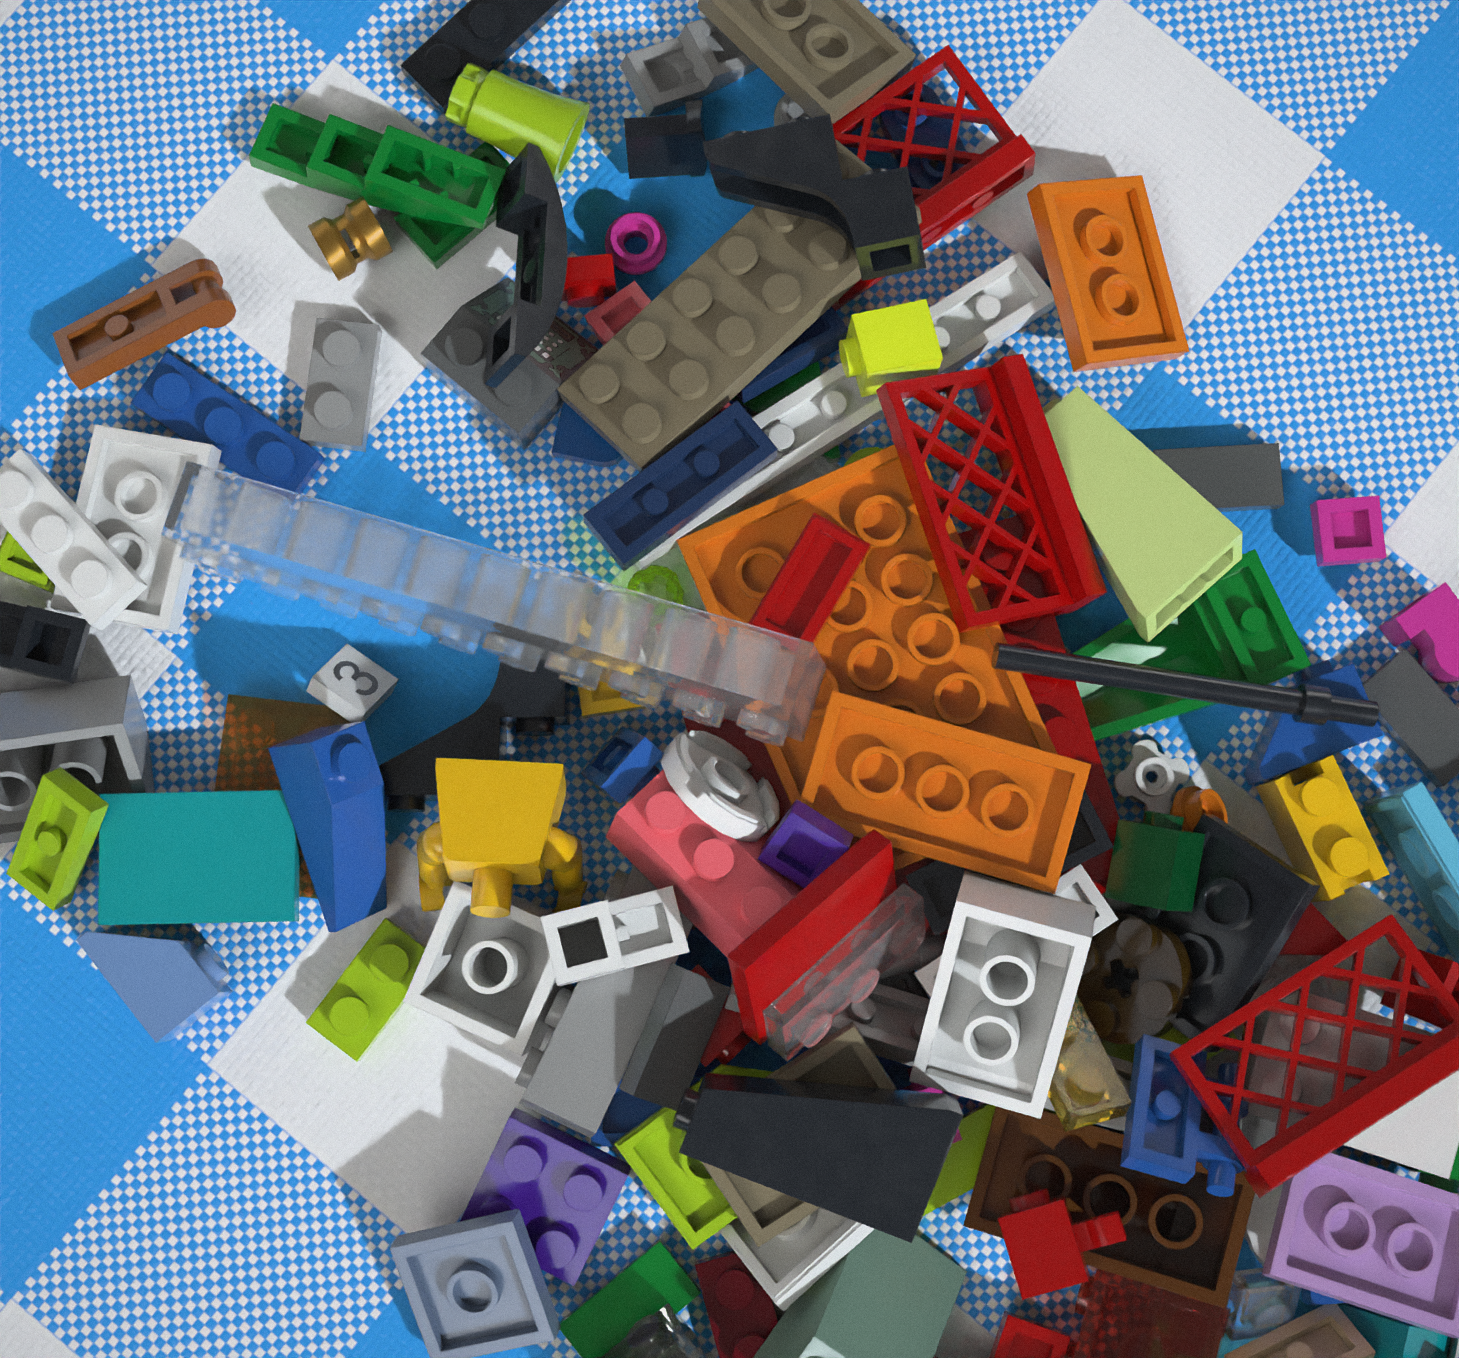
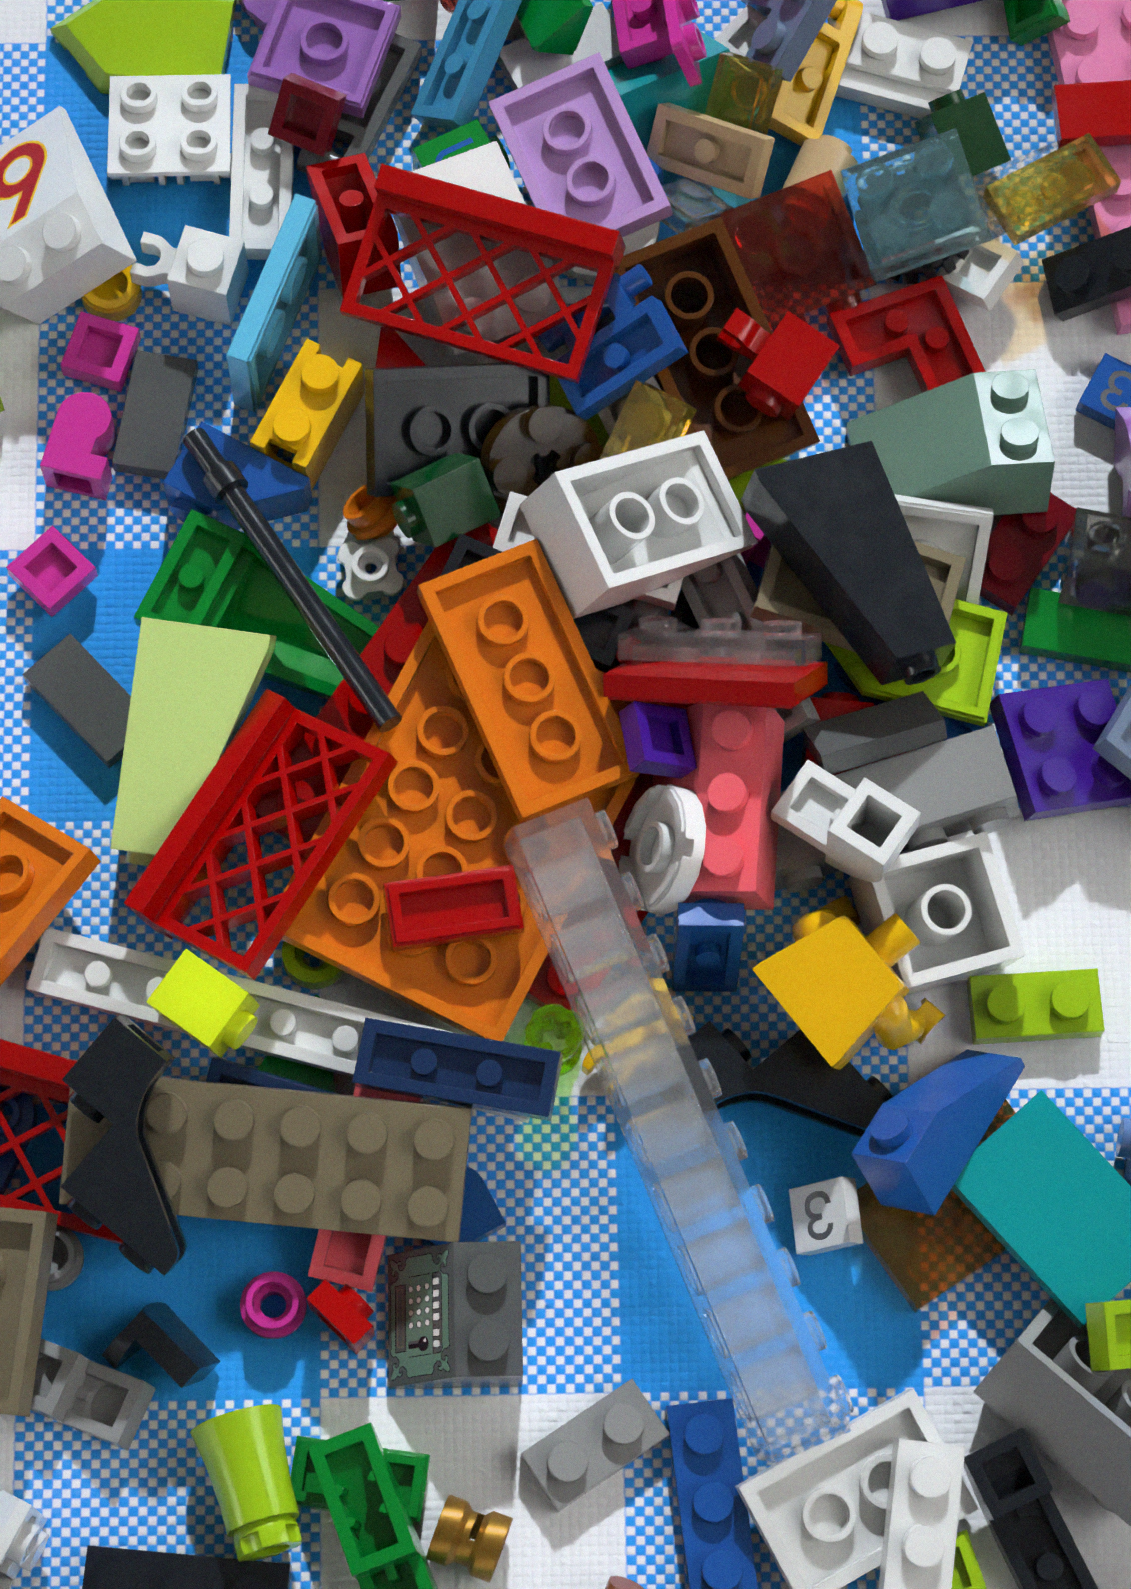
camera: 130 degrees left, 10 degrees down
(533, 211) = (371, 1337): black slope -> none

